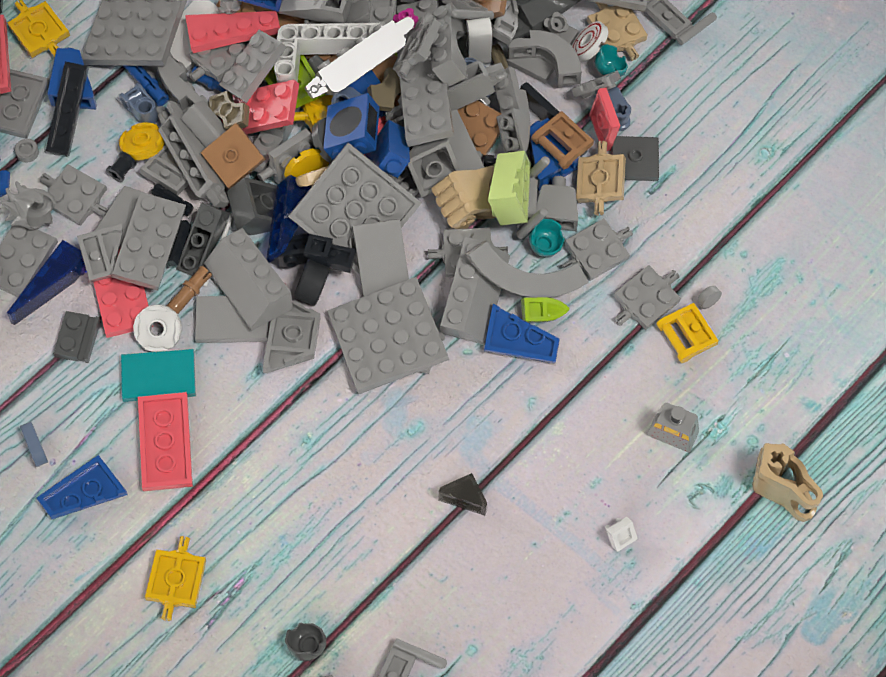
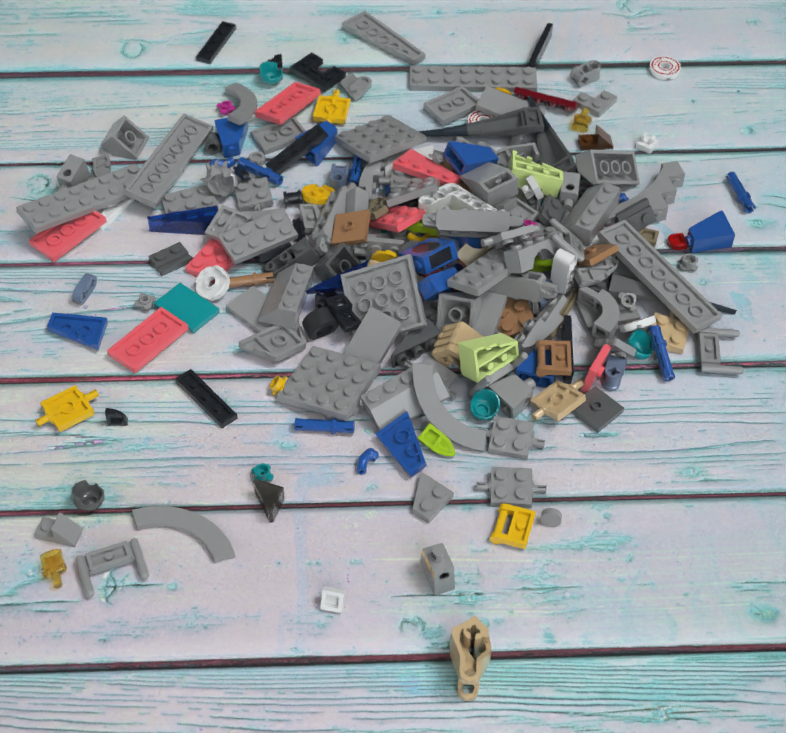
camera: 45 degrees right, 15 degrees down
(37, 180) = (242, 173): none -> black axle
(51, 162) = (260, 171): none -> blue pin
(111, 411) = (145, 302): none -> light grey plate
(233, 546) = (115, 417): none -> black tile
(289, 450) = (206, 398): none -> black tile
(343, 378) = (277, 384): none -> yellow plate
(419, 228) = (415, 344): none -> dark grey slope
(422, 580) = (188, 522): none -> light grey tile
(427, 469) = (262, 468): none -> teal plate
(429, 381) = (325, 425): none -> blue pin
(499, 382) = (368, 454): none -> blue arm
(593, 368) = (430, 498): none -> light grey wing
(635, 53) = (659, 346): none -> blue pin

